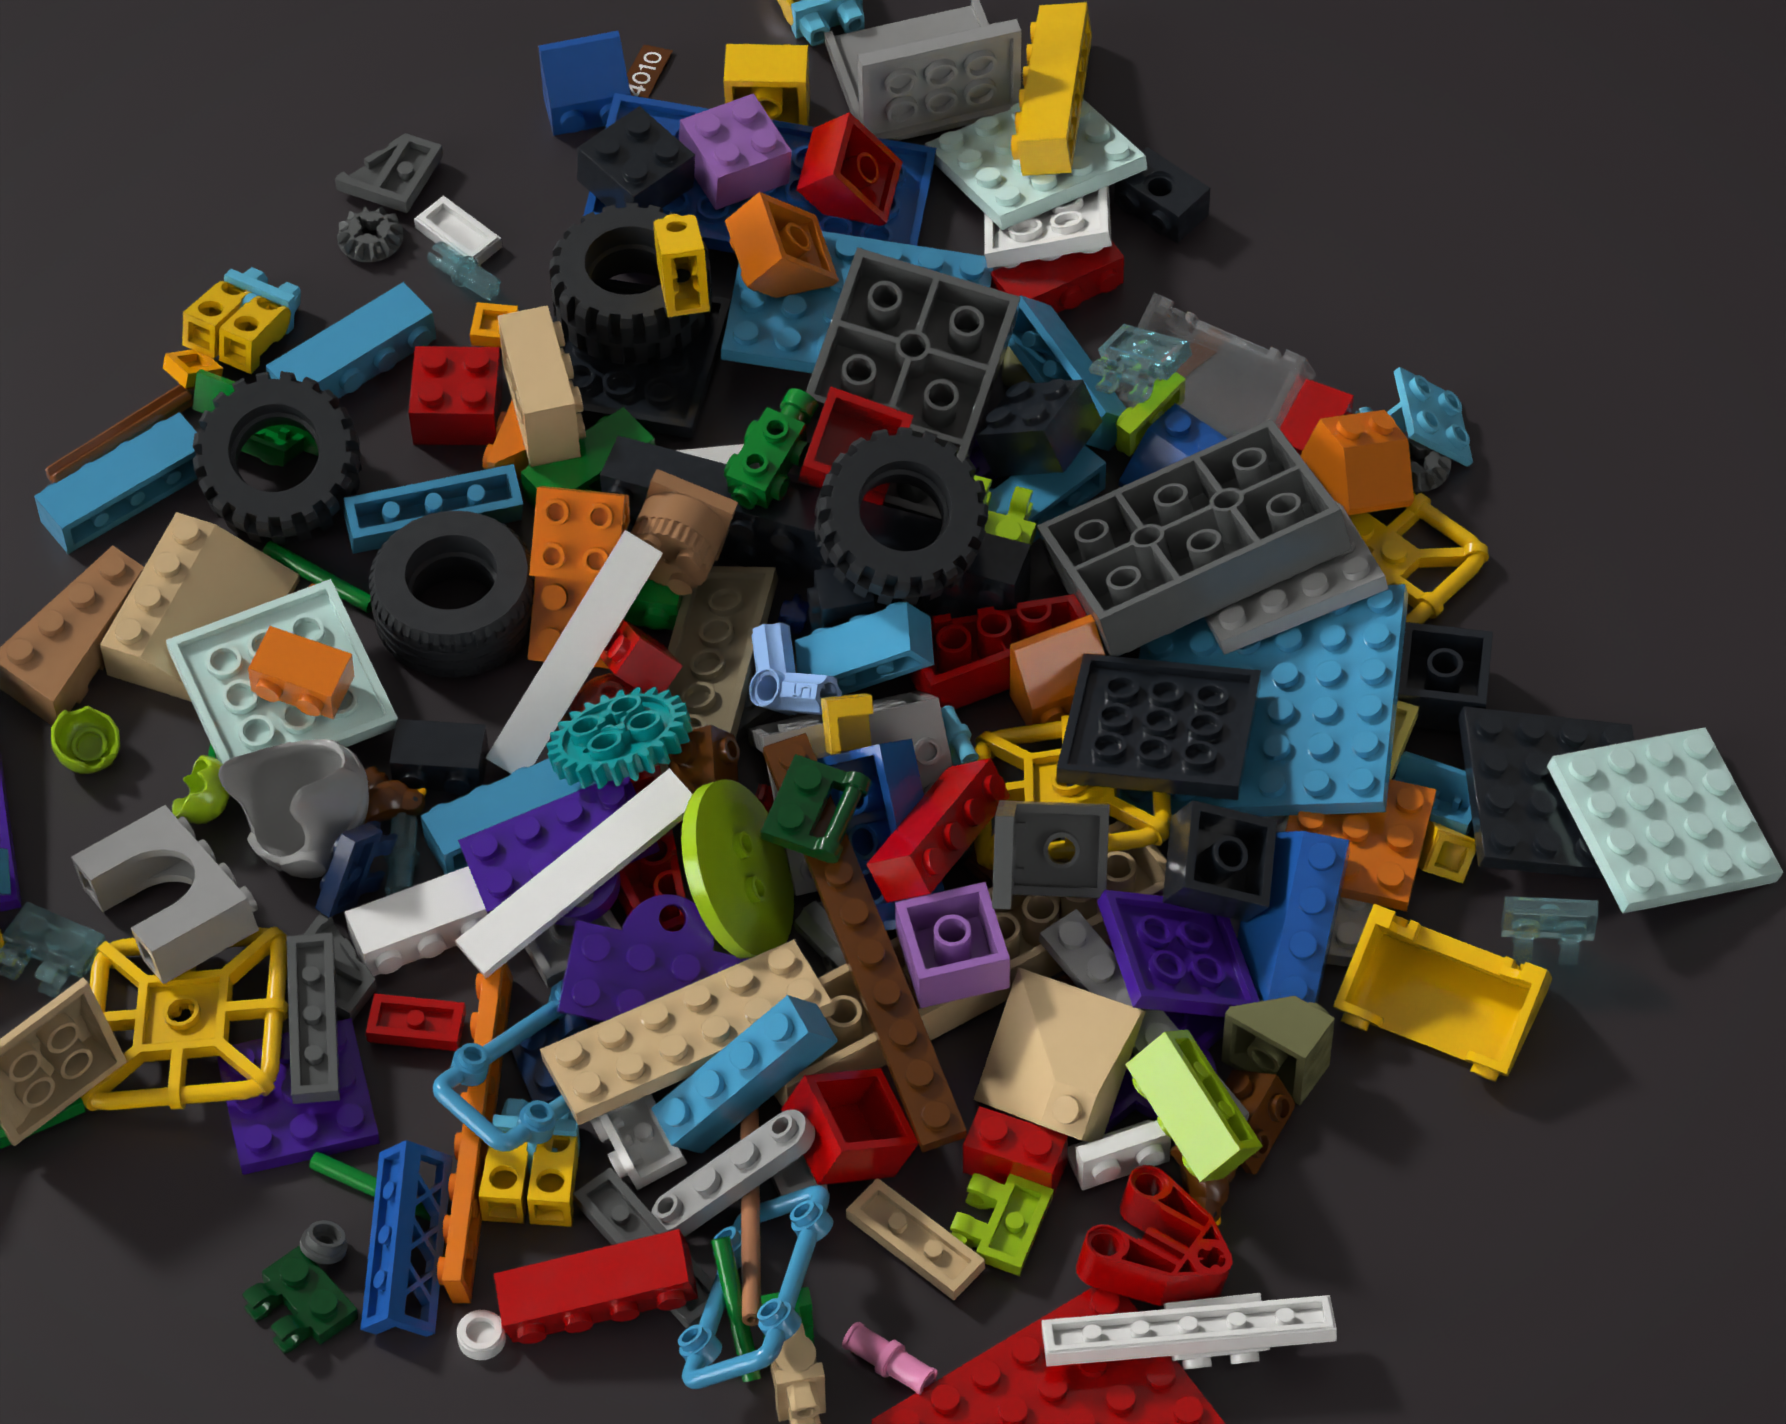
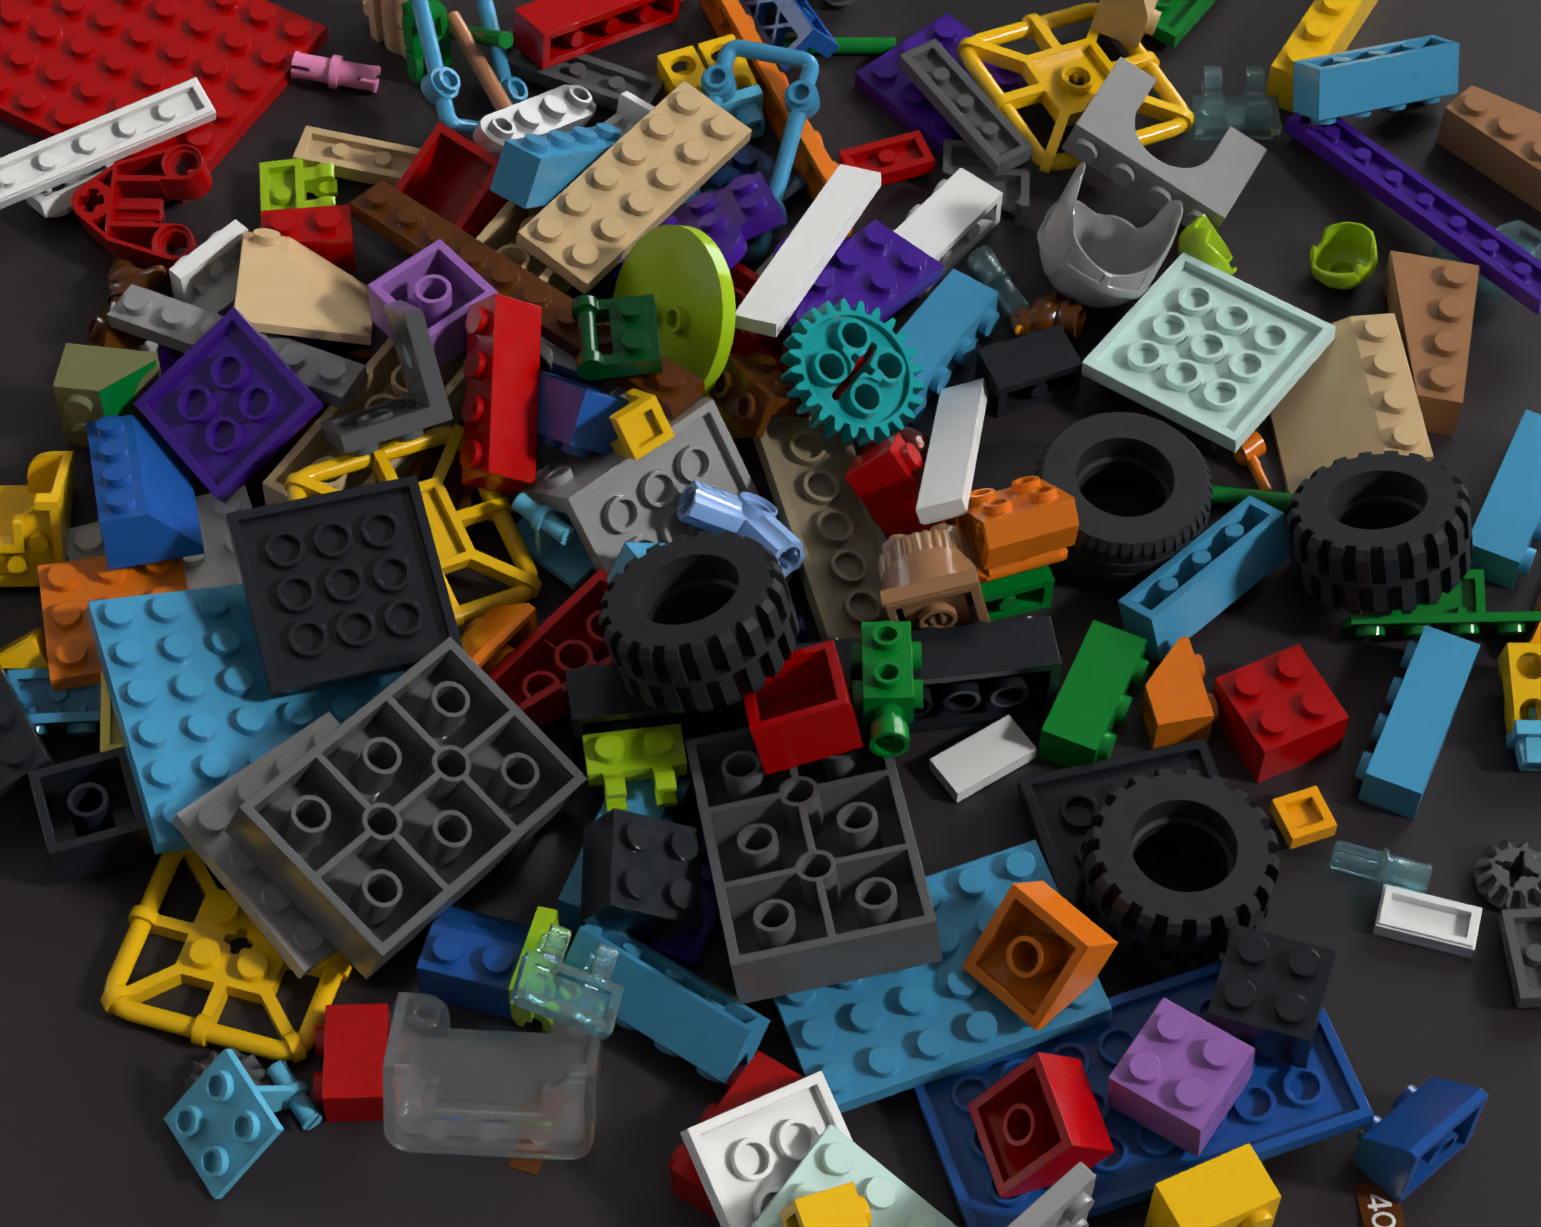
camera: 150 degrees right, 0 degrees up
(301, 673) = (1187, 333): orange brick -> none
(350, 866) = (1023, 219): dark blue plate -> none
(541, 385) = (1178, 682): tan brick -> none
(681, 247) = (1115, 822): yellow torso -> none
(1193, 1105) = (151, 269): lime brick -> none
(1219, 861) = (220, 471): black brick -> none
(1362, 461) = (274, 997): orange slope -> none

